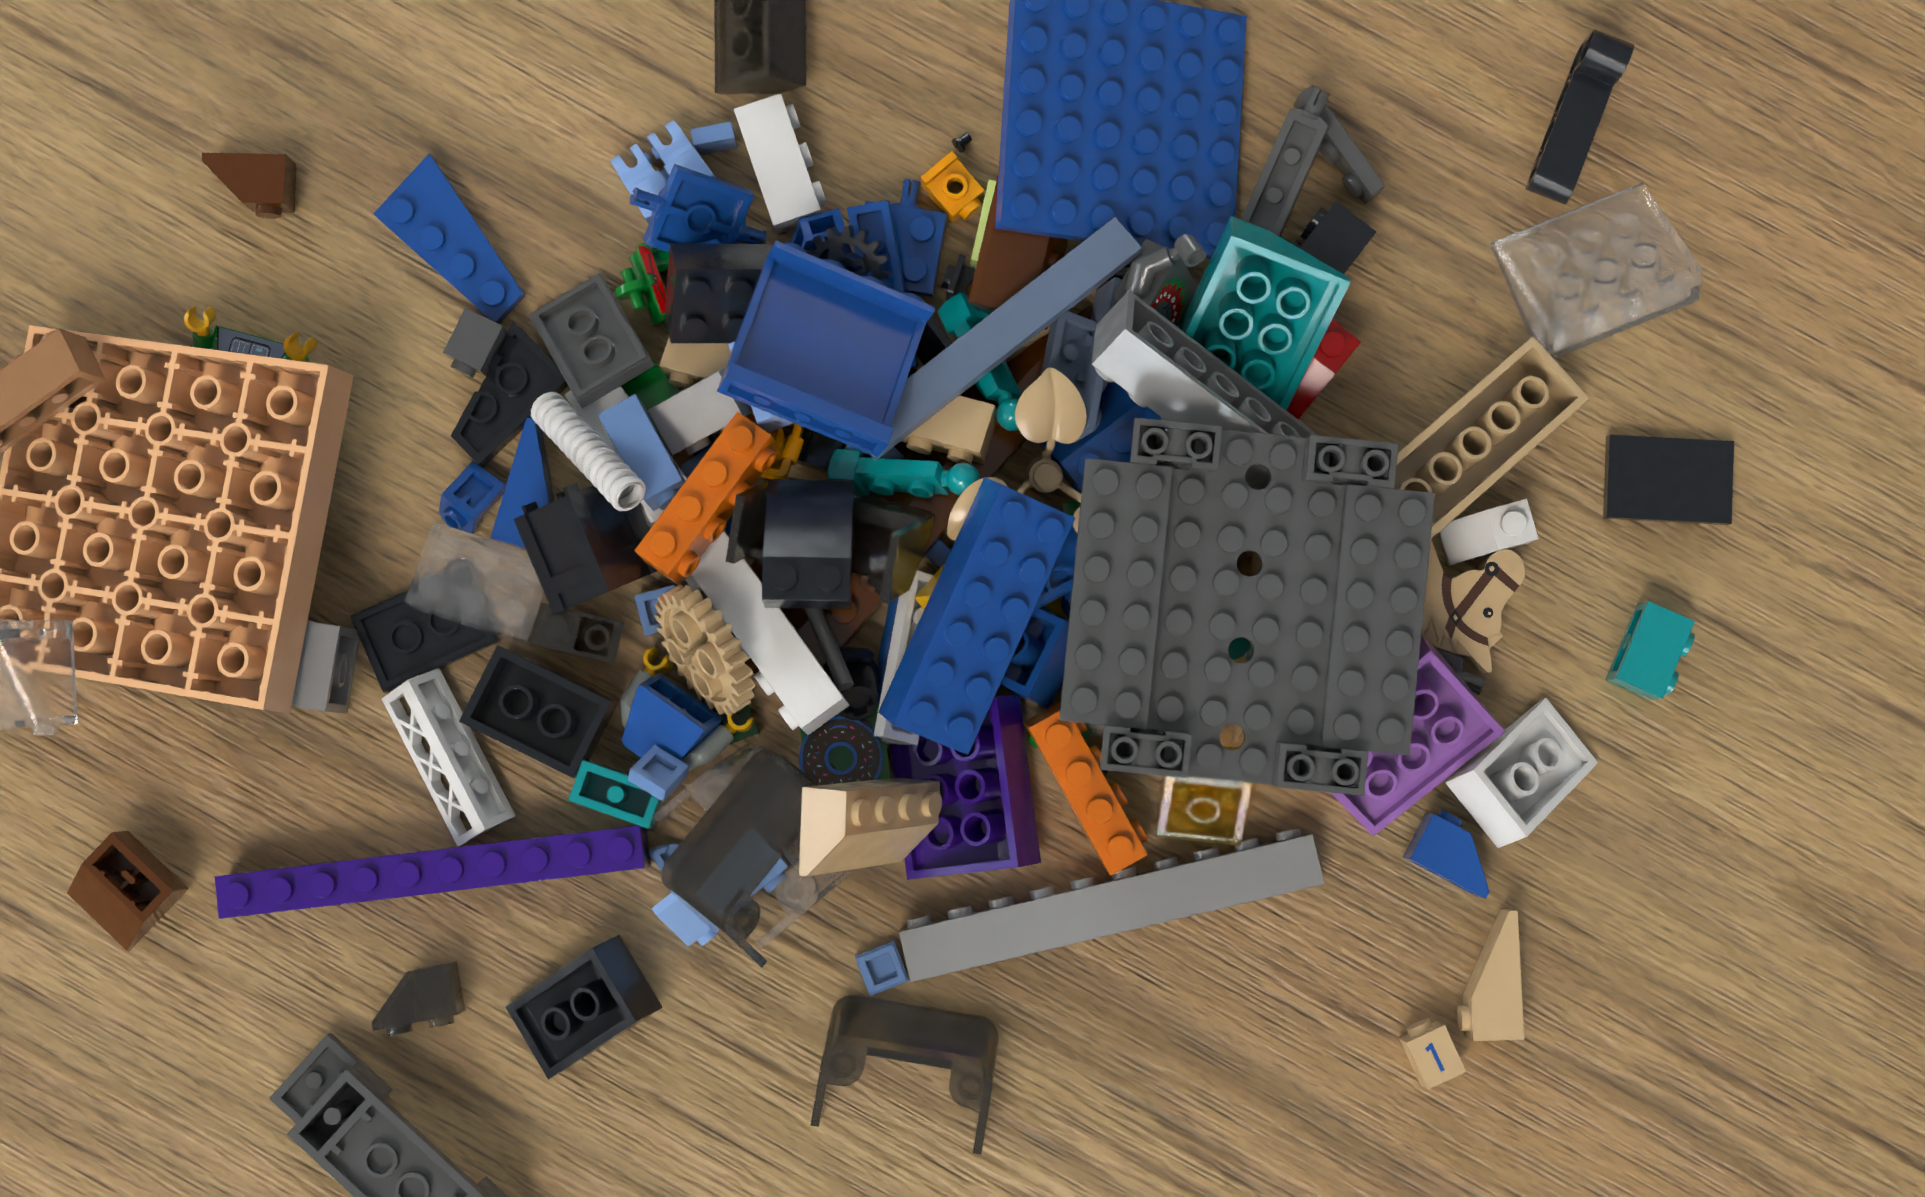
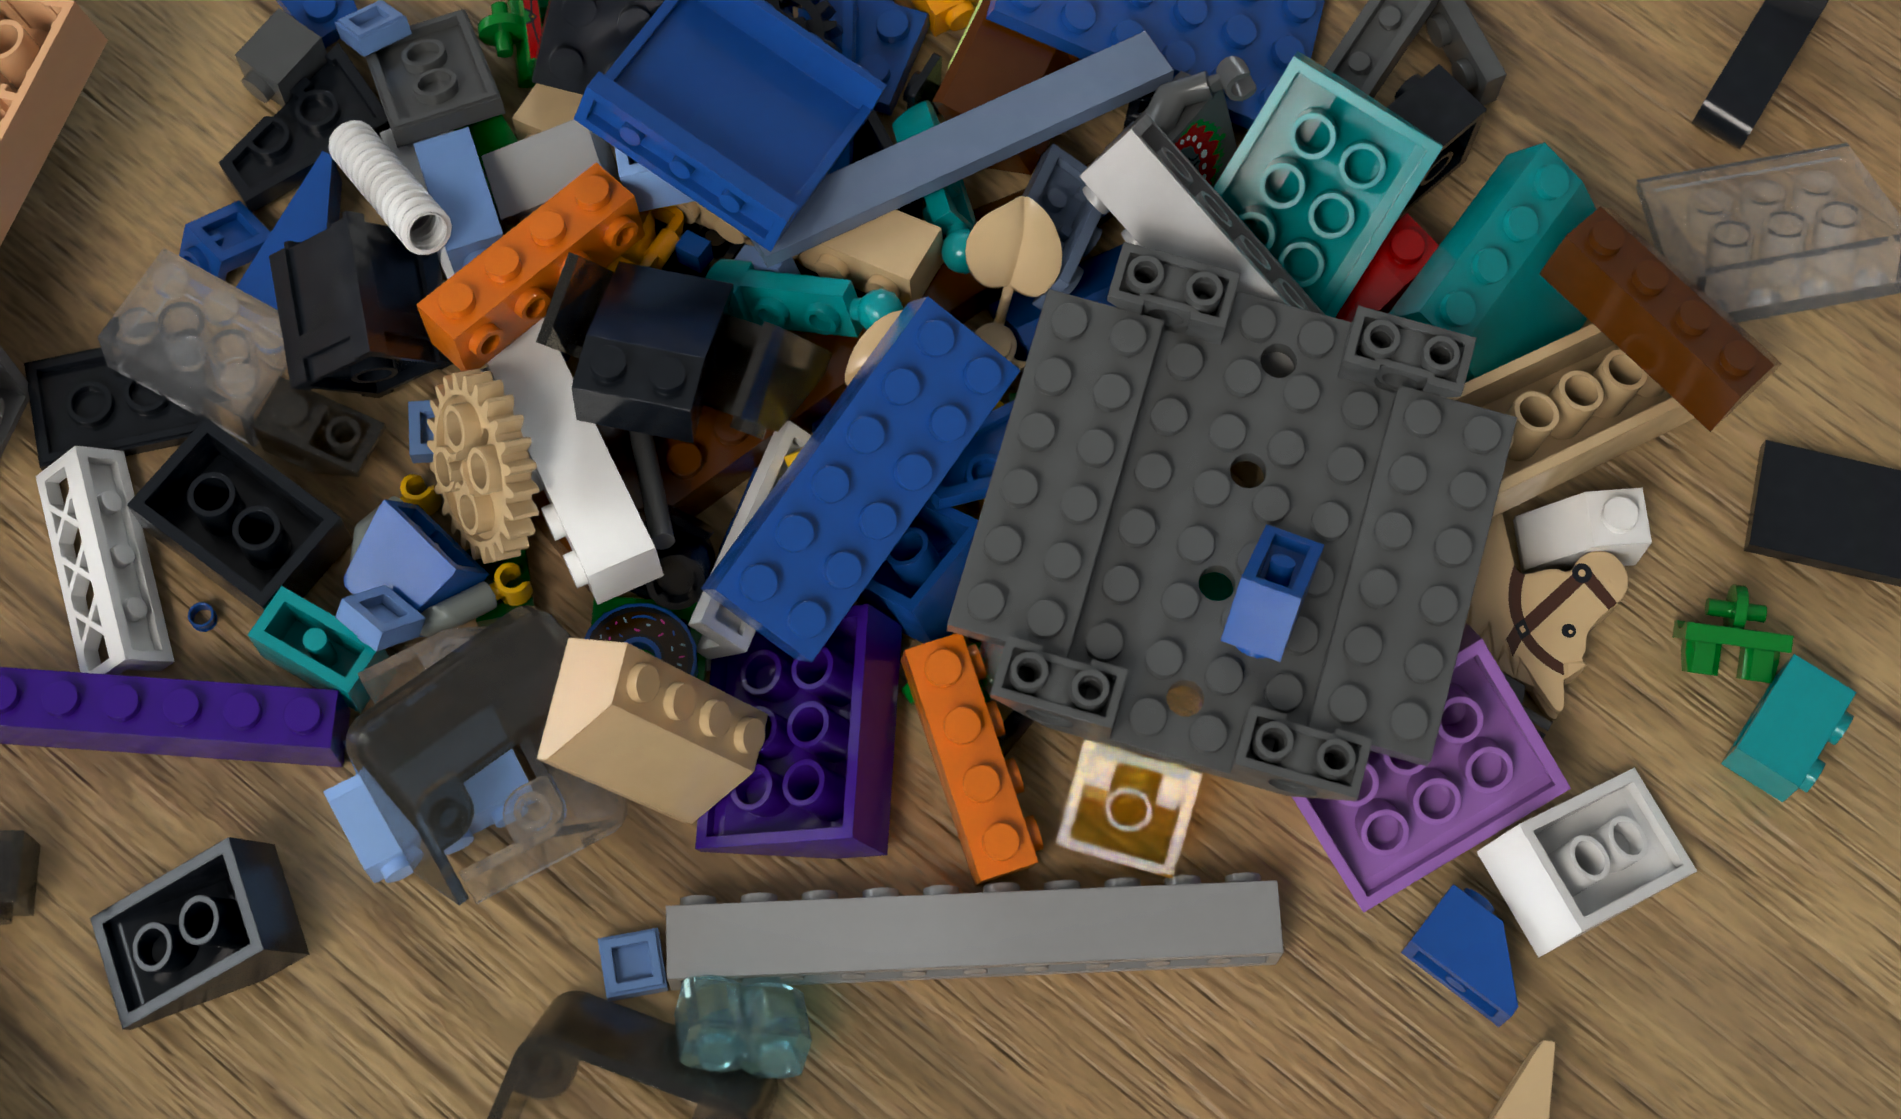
camera: 10 degrees right, 15 degrees down
(518, 778) = (206, 626): none -> blue piece
(537, 305) = (373, 27): none -> medium blue tile
(815, 444) = (694, 251): none -> blue piece
(968, 1005) = (742, 1027): none -> clear light blue brick
(1283, 658) = (1271, 593): none -> blue slope
(1409, 352) = (1490, 262): none -> teal slope
(1526, 371) = (1658, 317): none -> reddish brown slope
(1603, 585) = (1758, 649): none -> green hips

